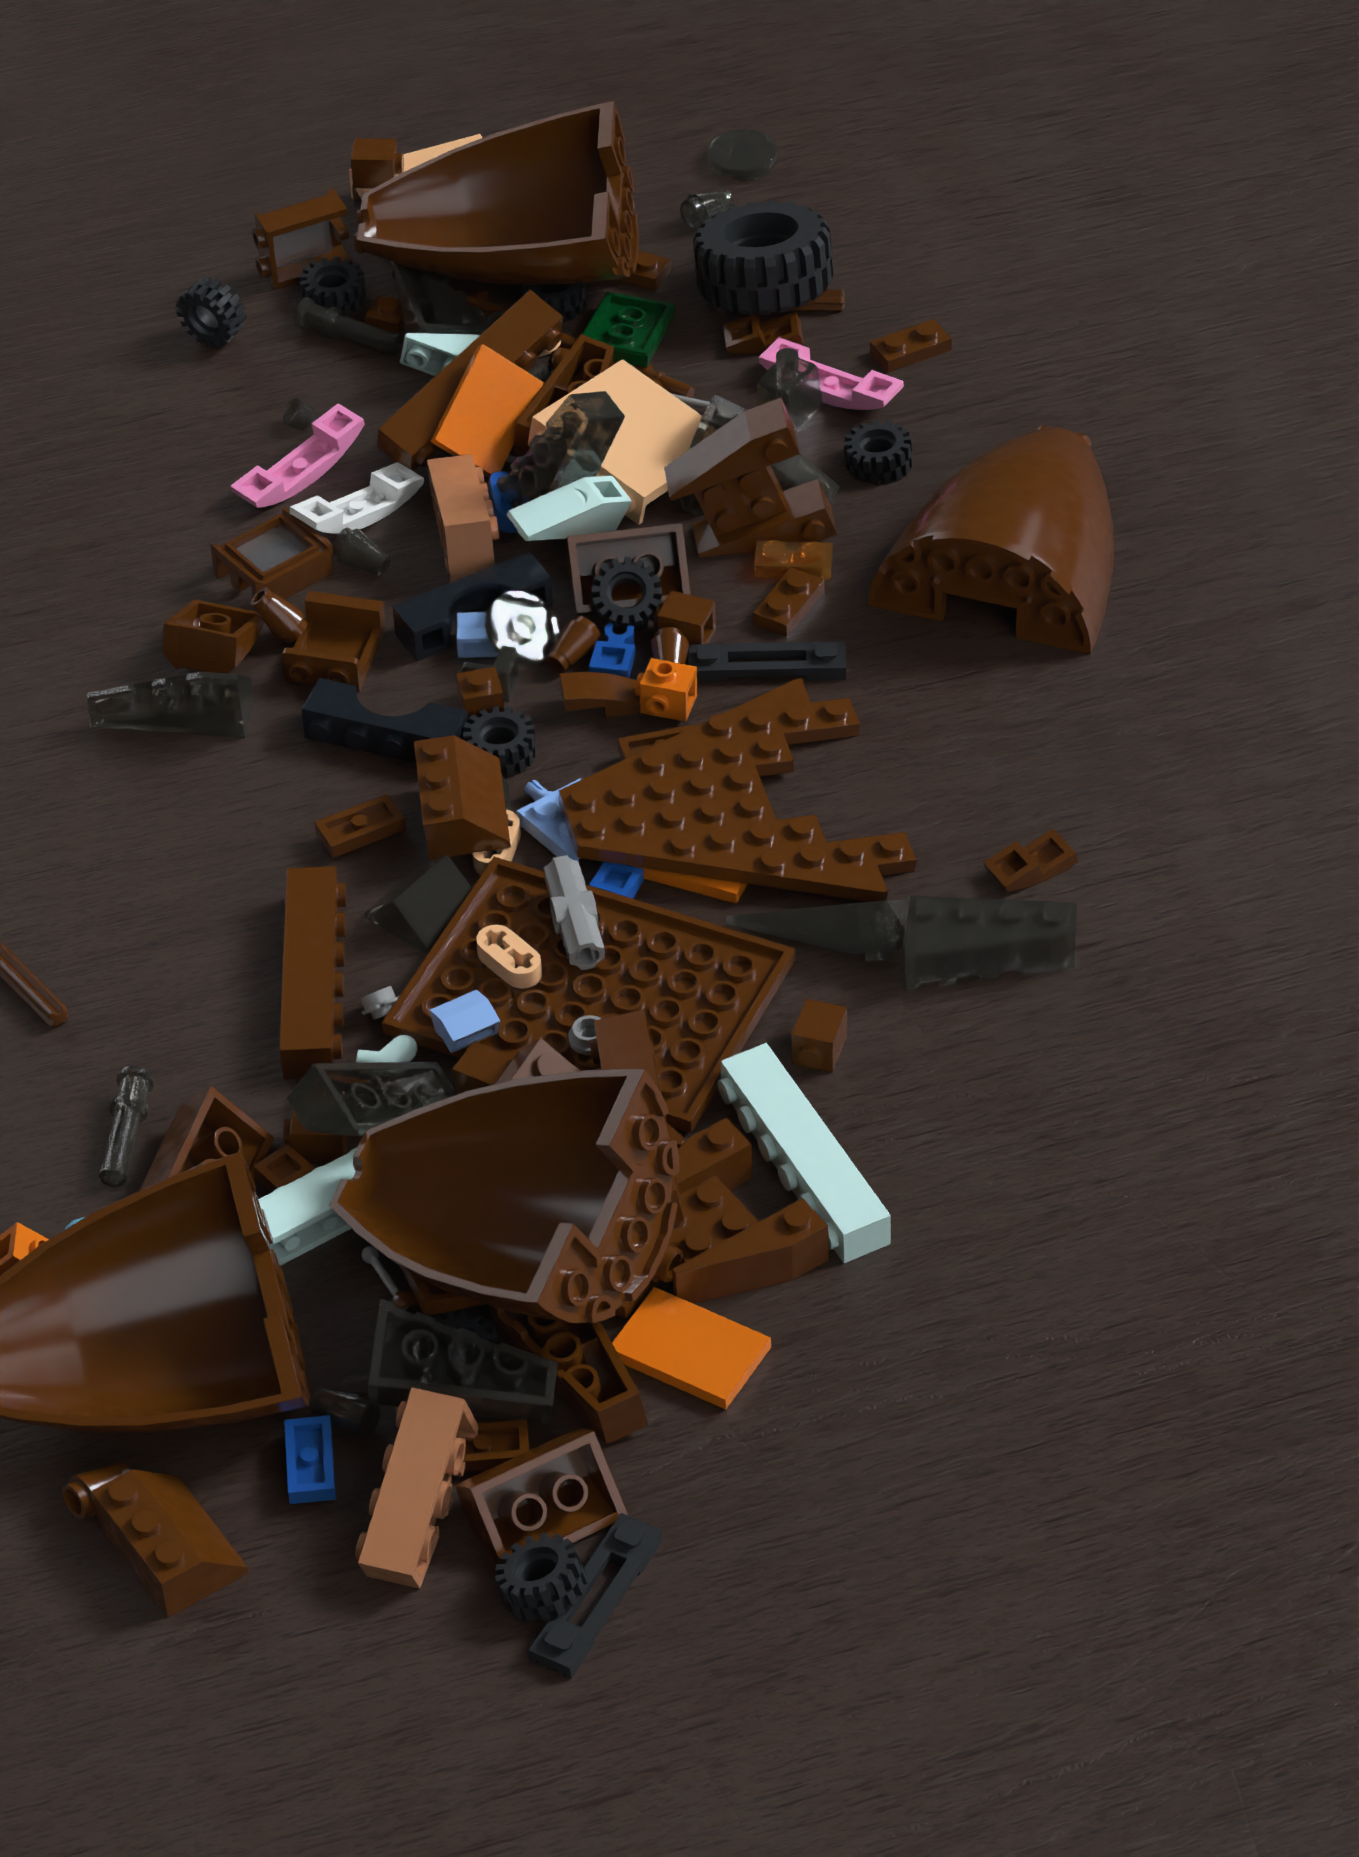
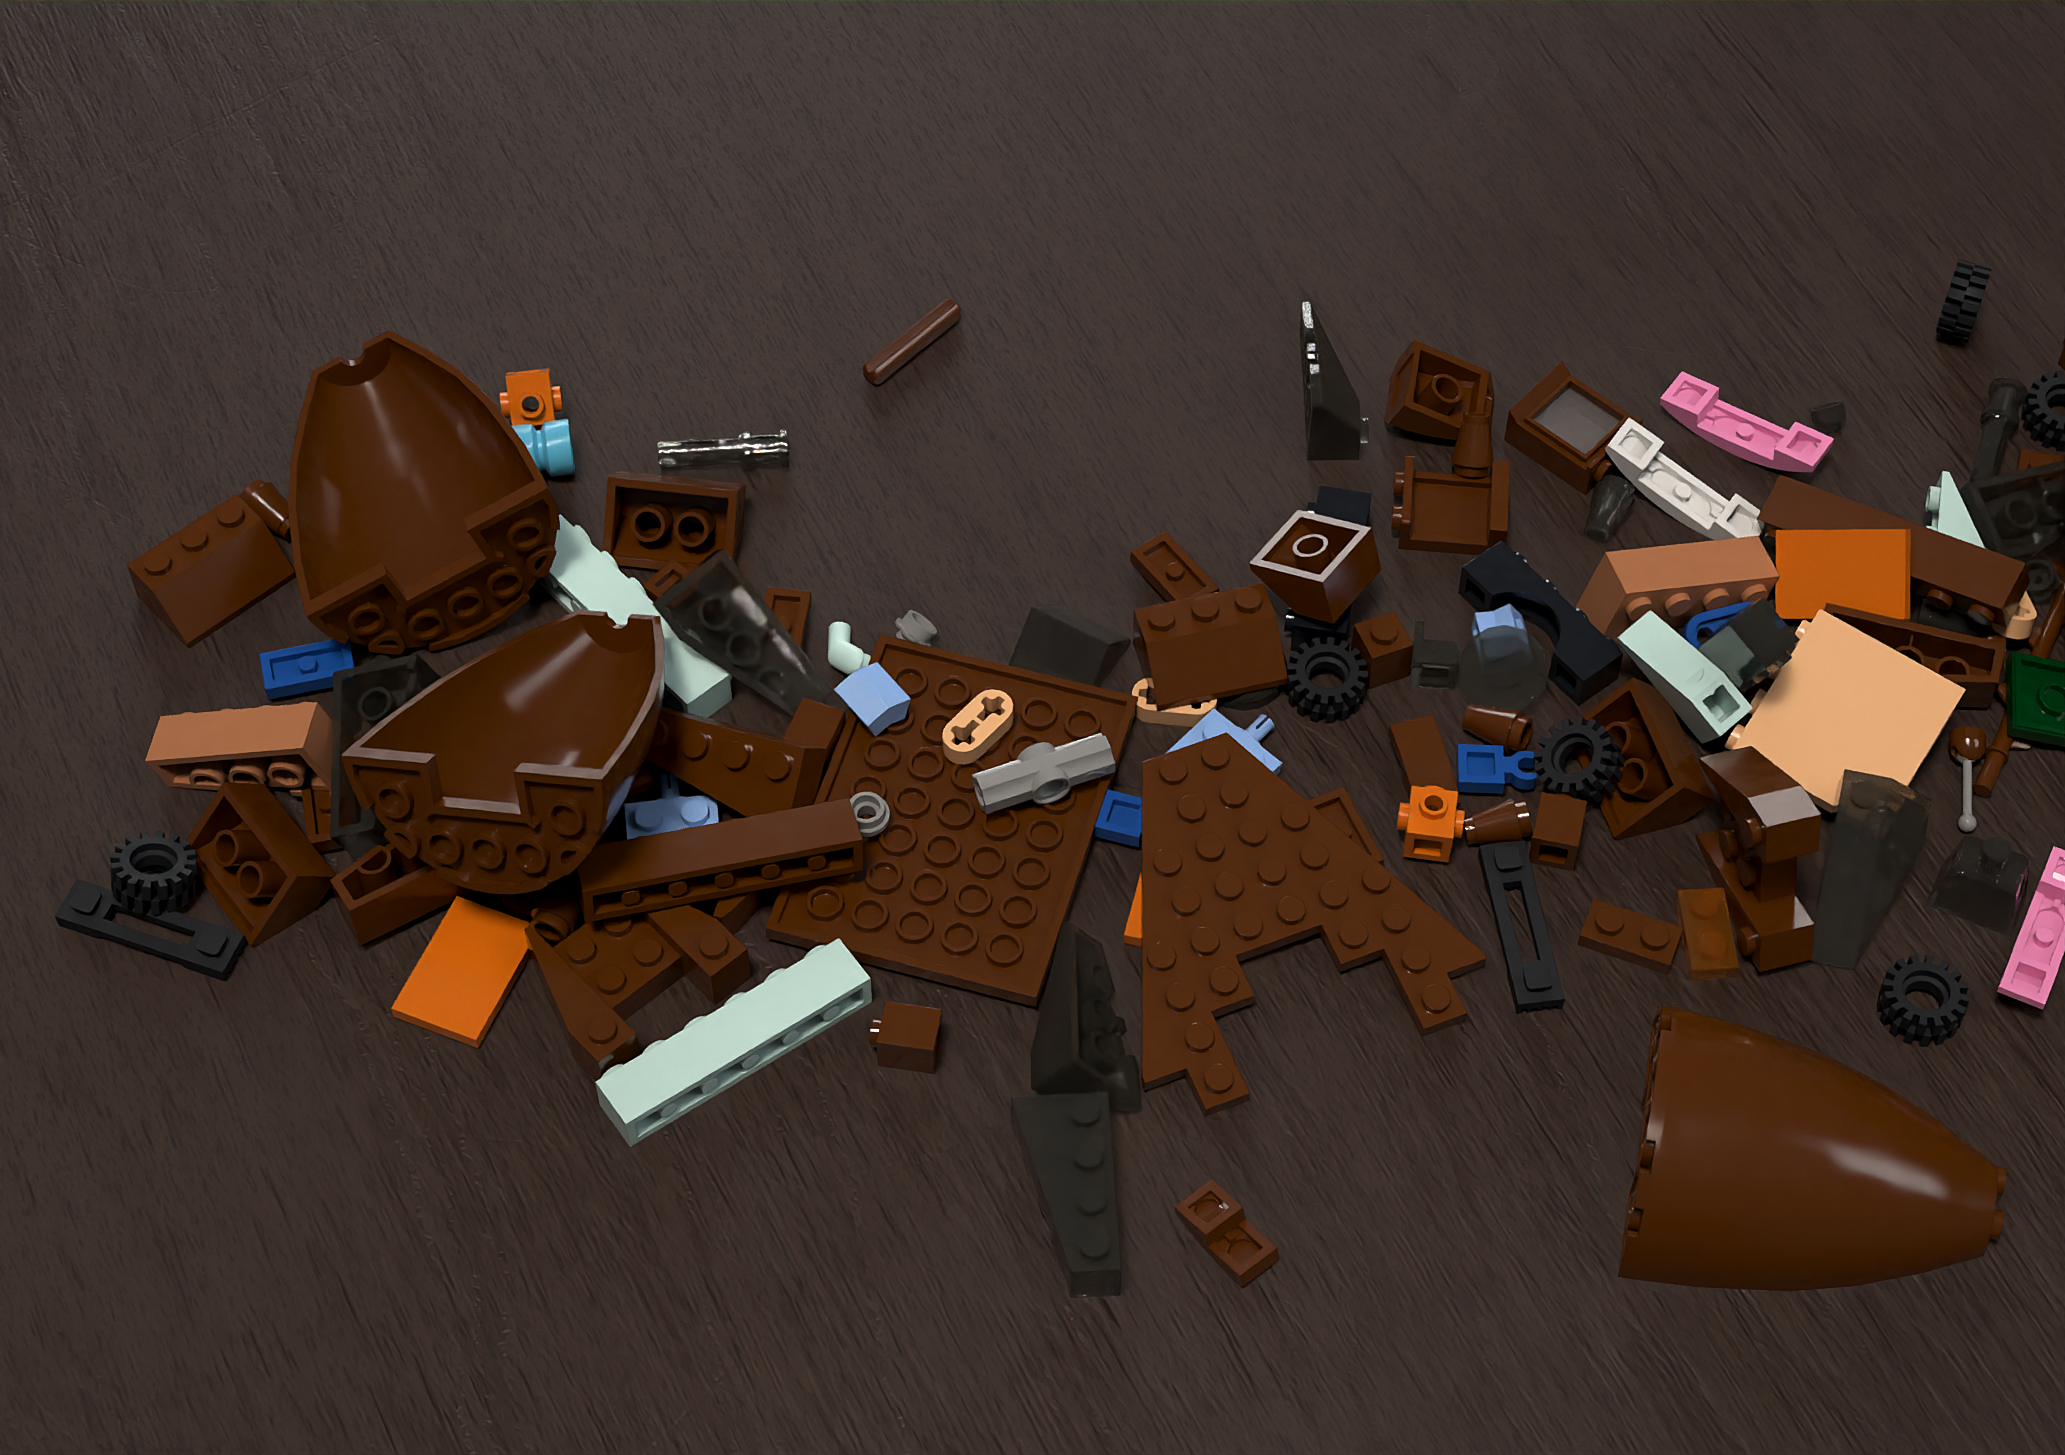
camera: 80 degrees right, 10 degrees up
(311, 969) = (950, 563): reddish brown brick -> none
(407, 699) = (1318, 564): none -> reddish brown slope

